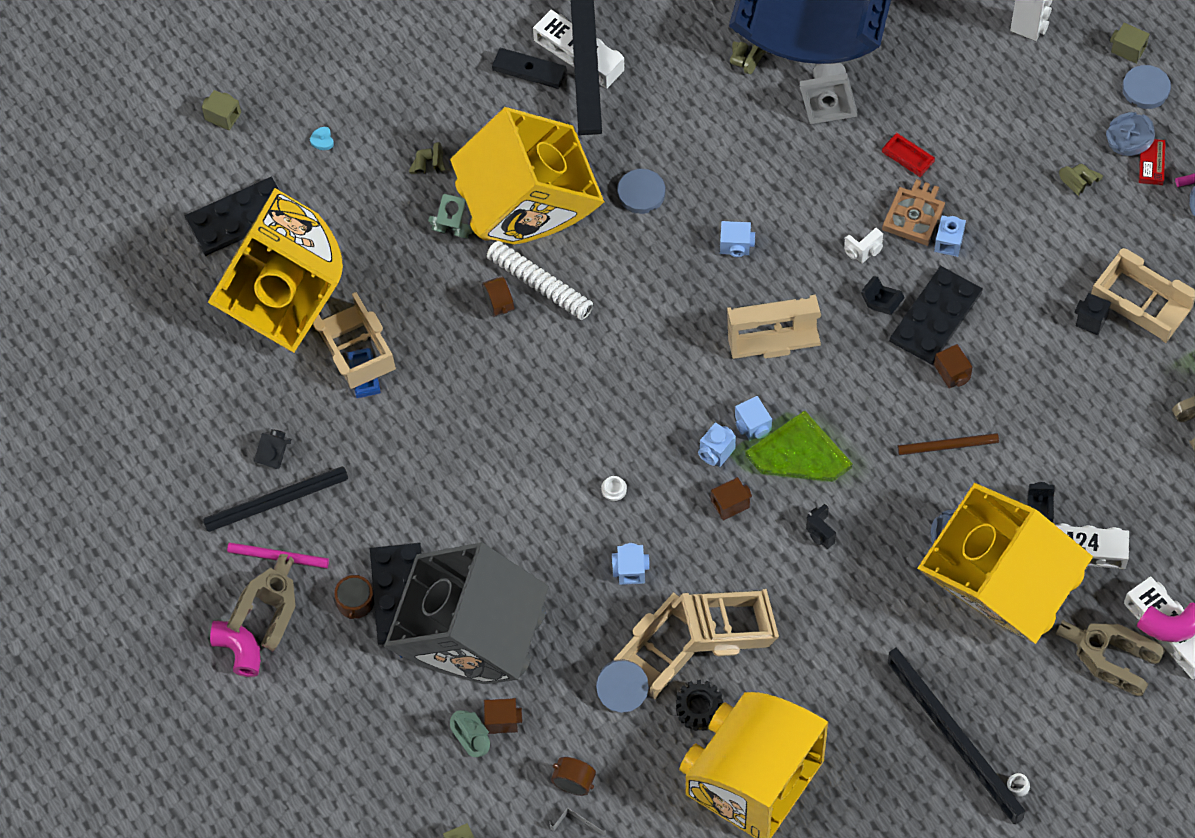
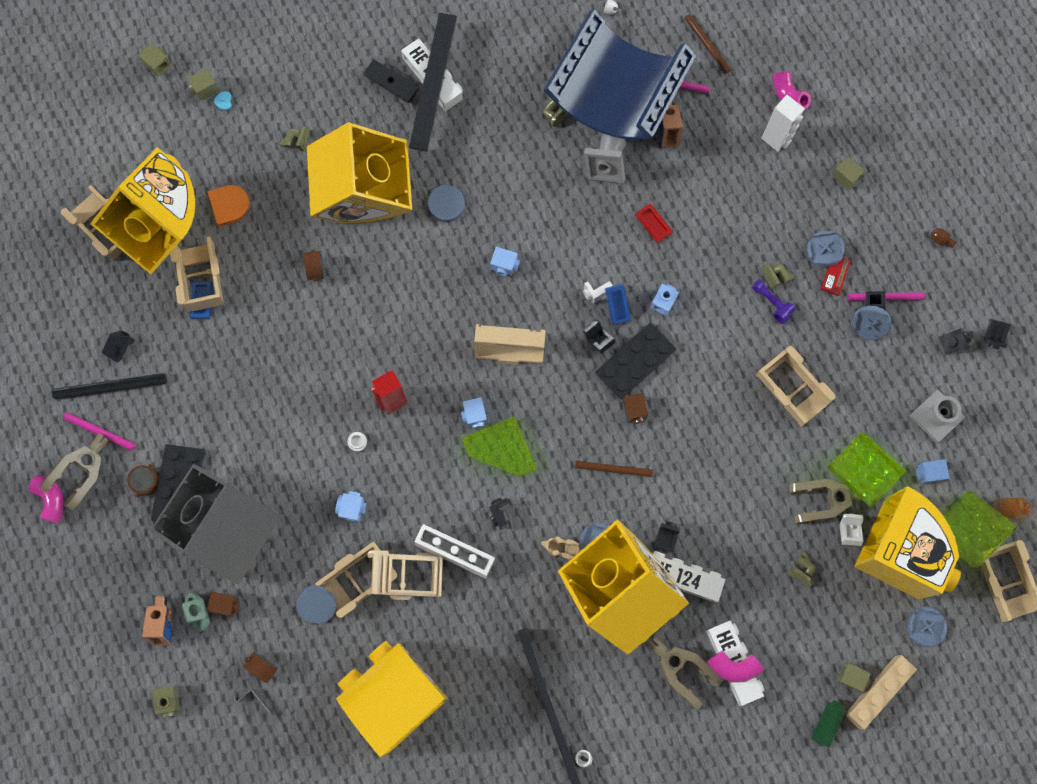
camera: 10 degrees right, 15 degrees up
(186, 300) = (86, 211): none -> tan piece
(230, 217) = (130, 150): black plate -> none
(293, 123) = (203, 84): none -> olive brick
(366, 254) = (229, 204): none -> orange tile
(426, 752) = (158, 623): none -> nougat torso
(442, 223) = (291, 194): sand green bracket -> none
(540, 280) = (349, 258): white piece -> none
(643, 409) = (388, 392): none -> red brick
(694, 691) = (359, 625): black tyre -> none
(717, 445) = (441, 427): light blue brick -> none
(731, 498) = (439, 473): reddish brown brick -> none
(781, 580) = (454, 551): none -> white brick
(893, 253) = (617, 304): none -> blue tile
(896, 30) = (673, 122): none -> nougat torso
(910, 546) = (562, 548): none -> tan animal
(914, 213) = (644, 273): medium nougat piece -> none
(1092, 313) = (751, 391): black brick -> none
(1101, 216) = (784, 311): none -> dark purple brick
(1146, 86) = (850, 211): sand blue tile -> none

